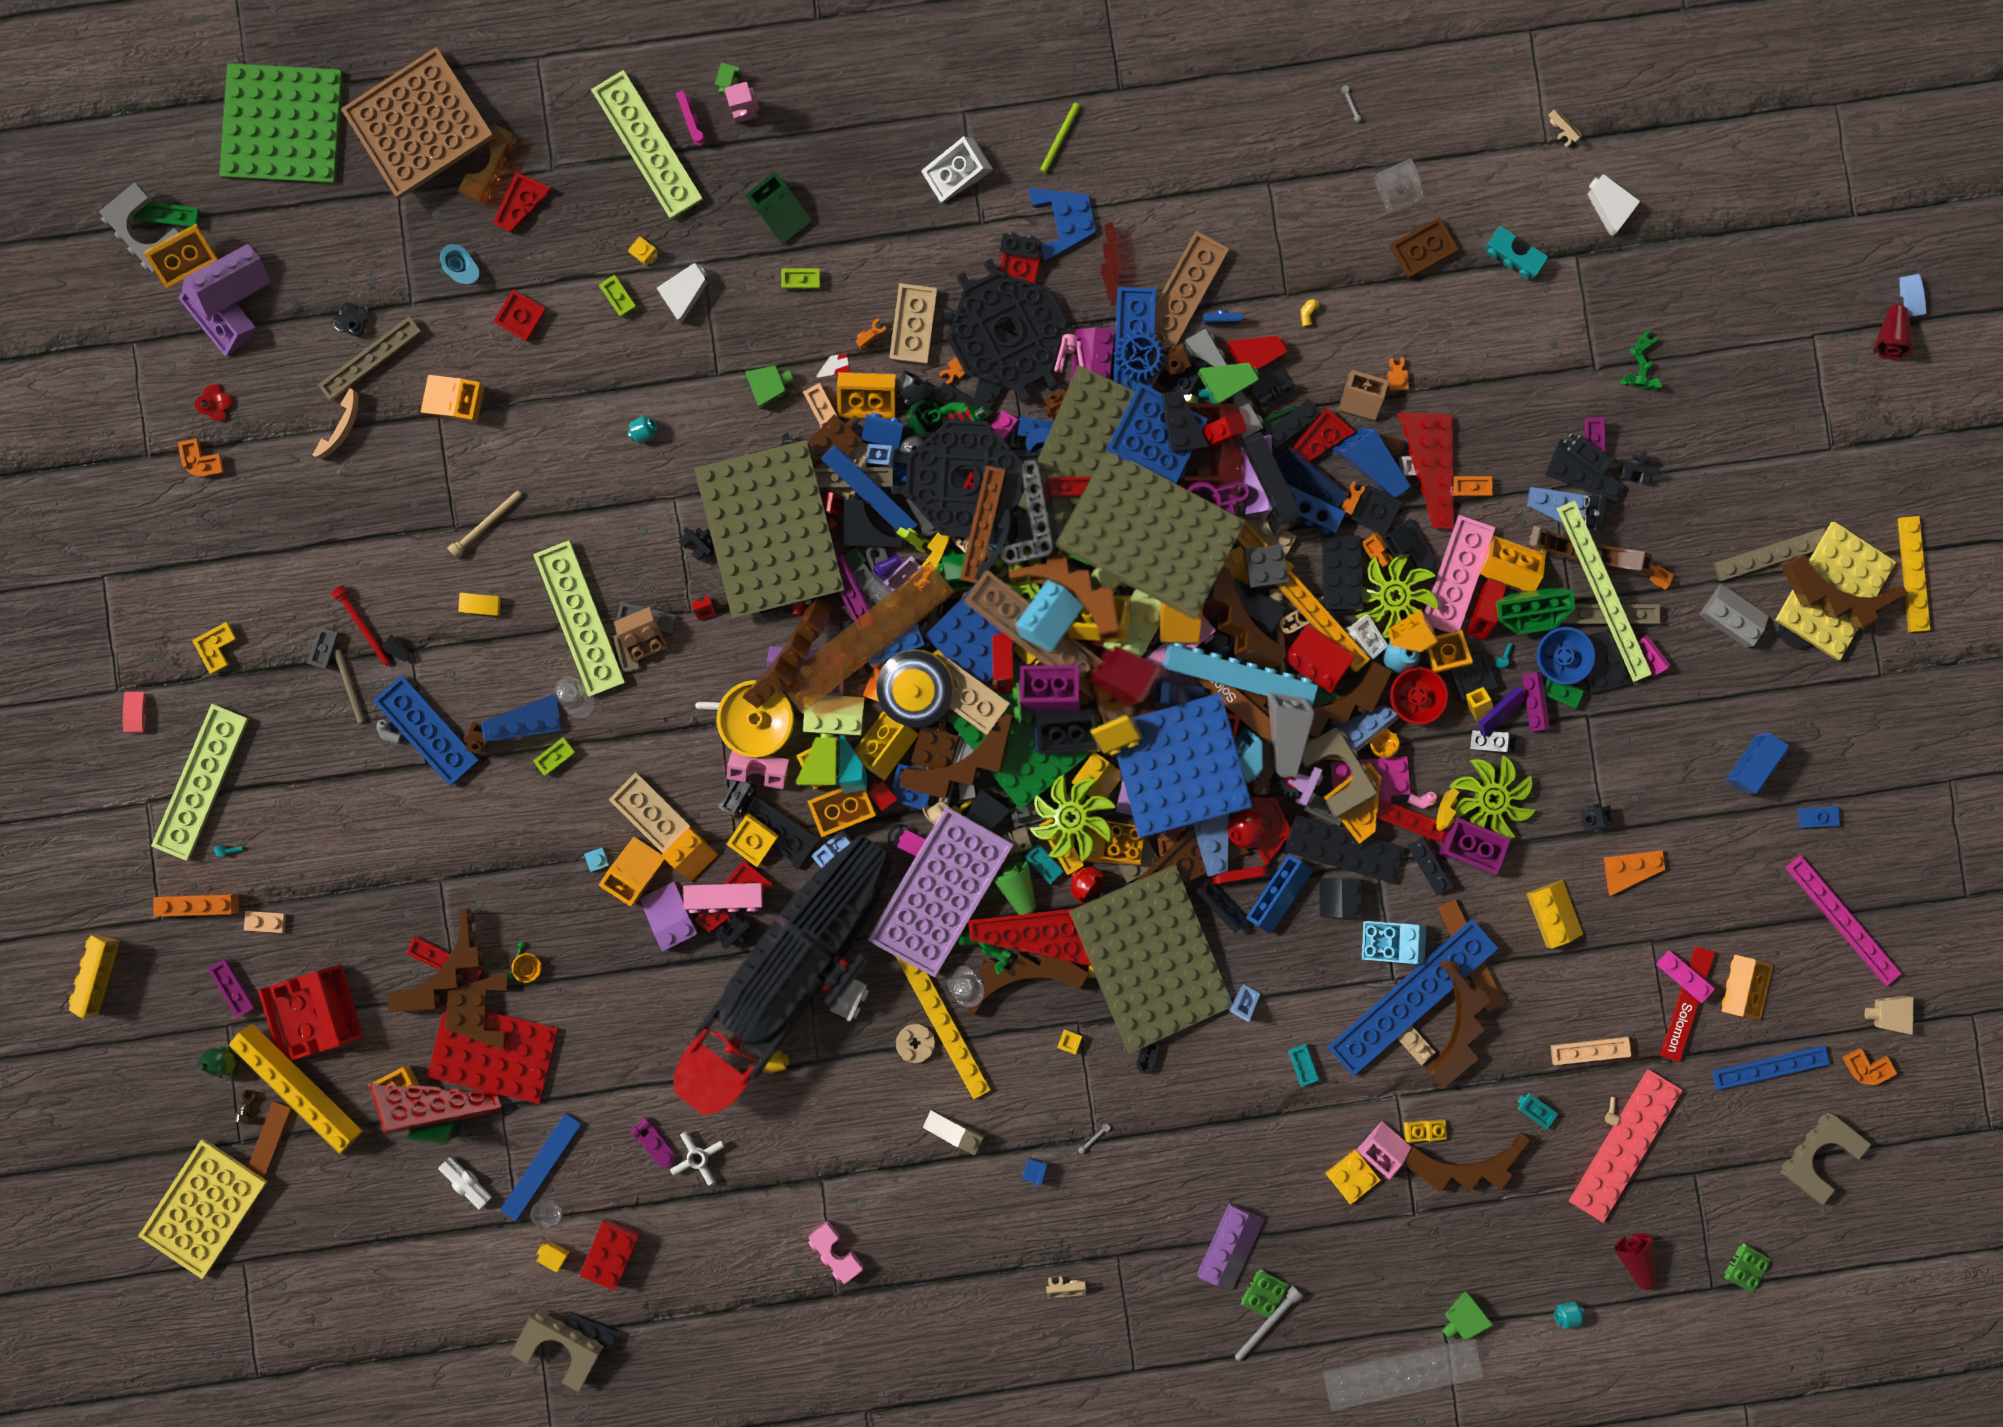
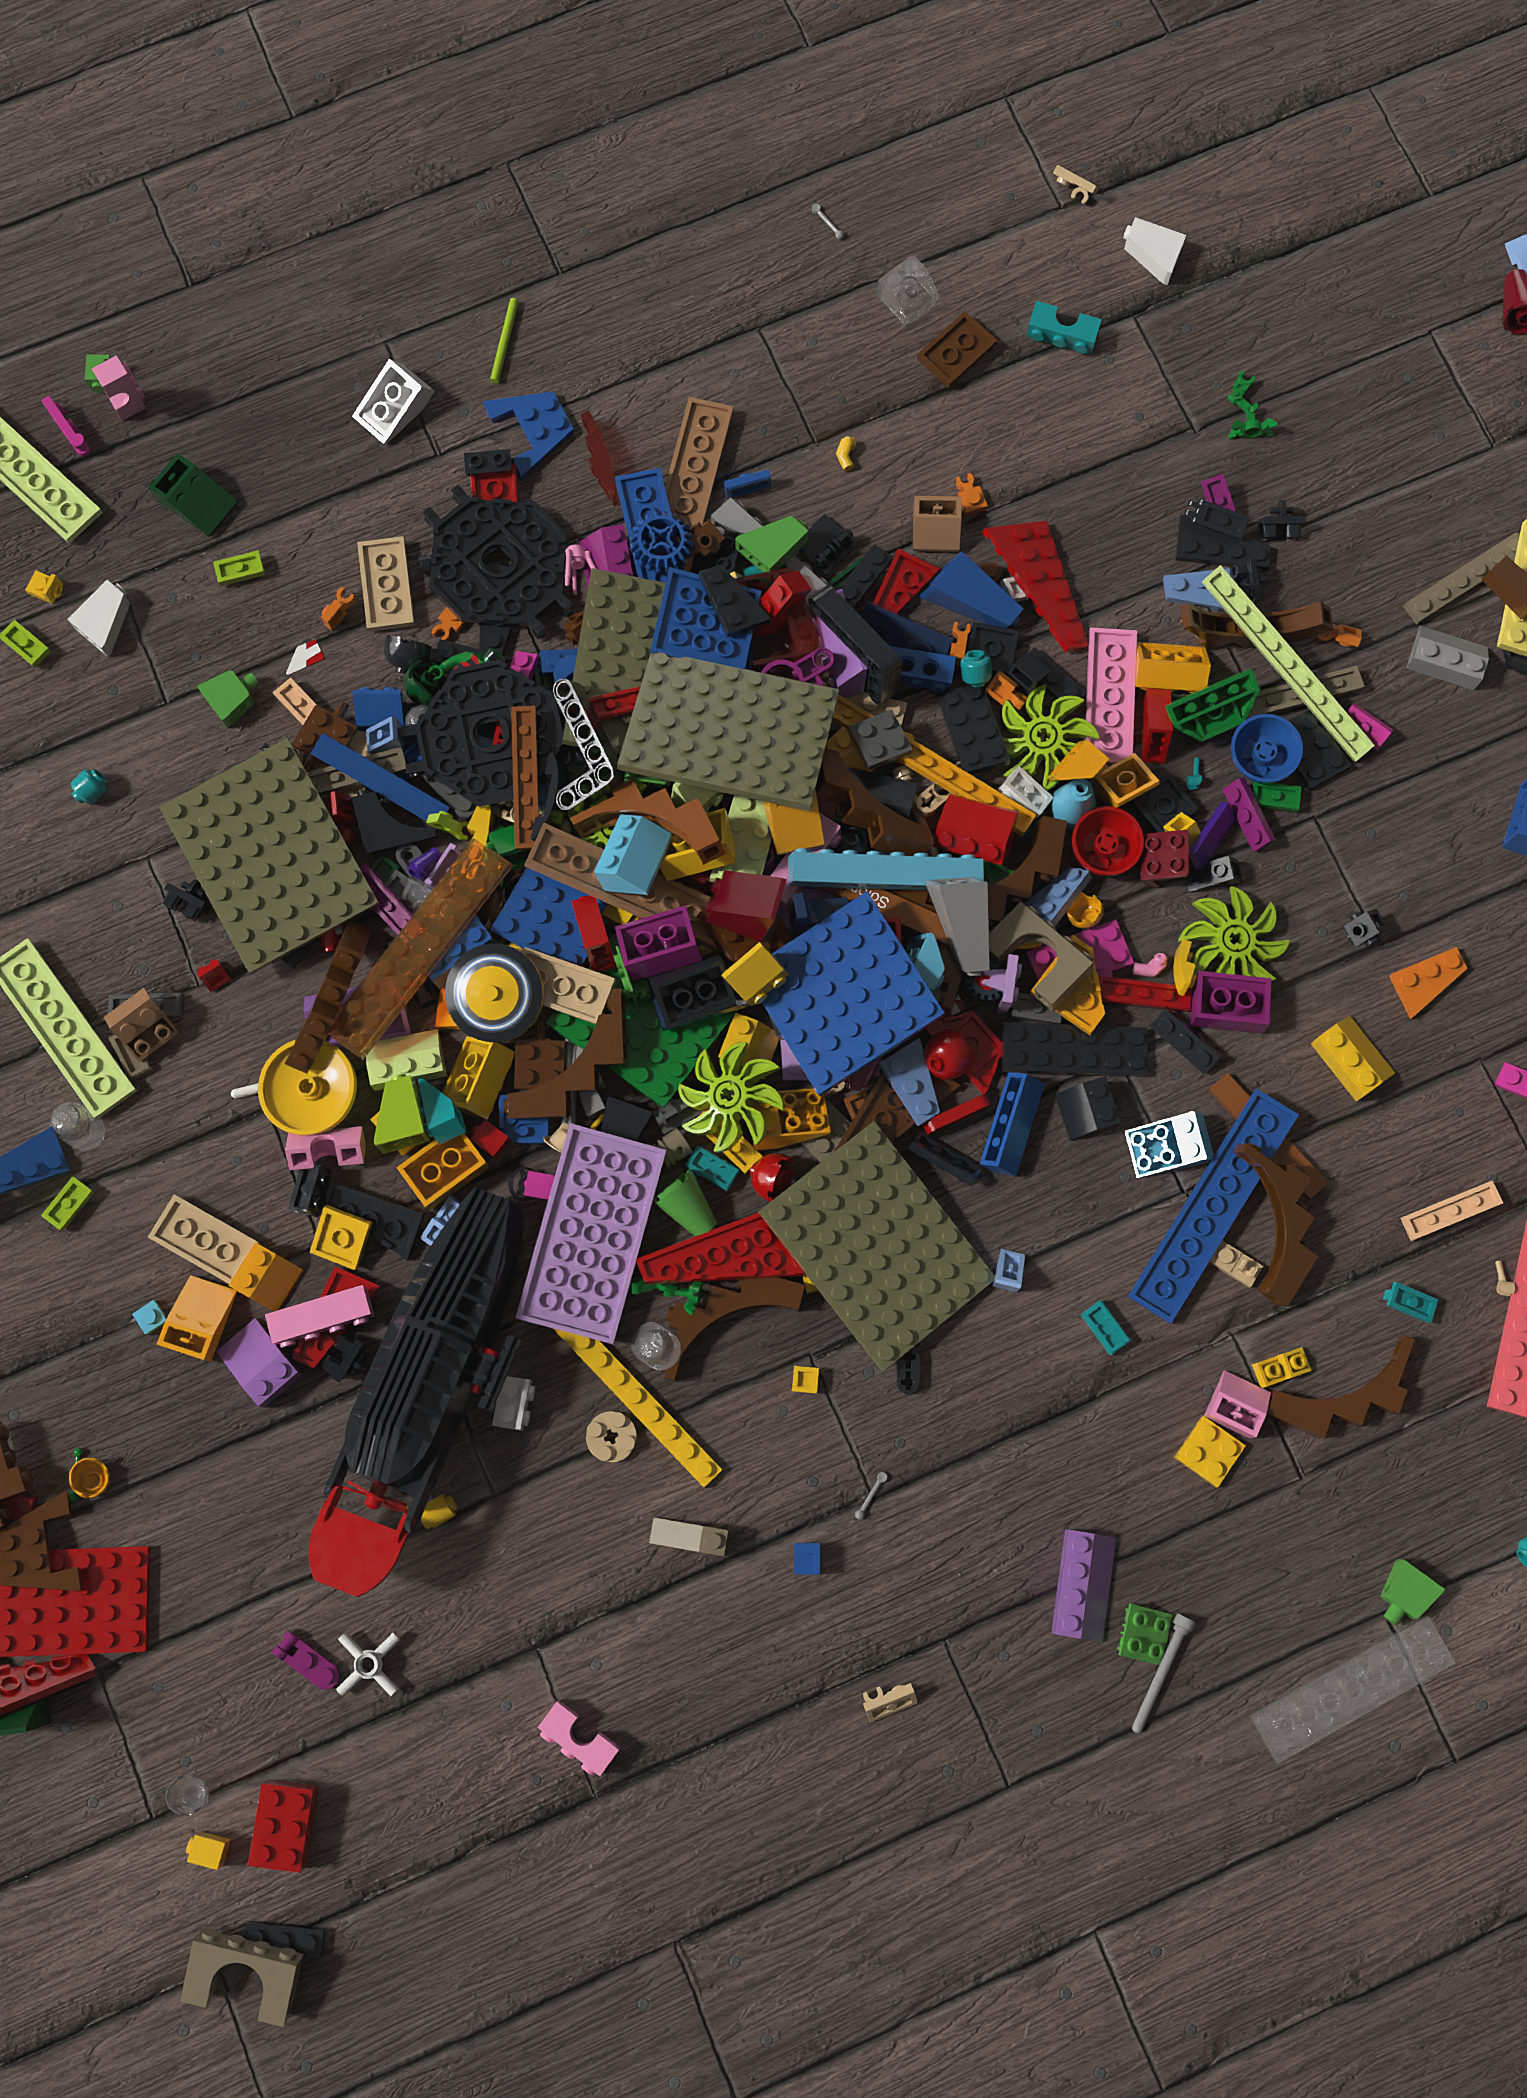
camera: 15 degrees left, 10 degrees down
(465, 1182) = (70, 1784): white piece -> none
(540, 1166) = (166, 1735): blue tile -> none
(866, 393) = (342, 672): light orange slope -> none
(1257, 351) = (804, 504): red slope -> none
(1358, 526) = (976, 668): none -> teal head
(1459, 720) = (1165, 857): none -> dark red bracket
(1472, 486) = (1095, 592): orange plate -> none

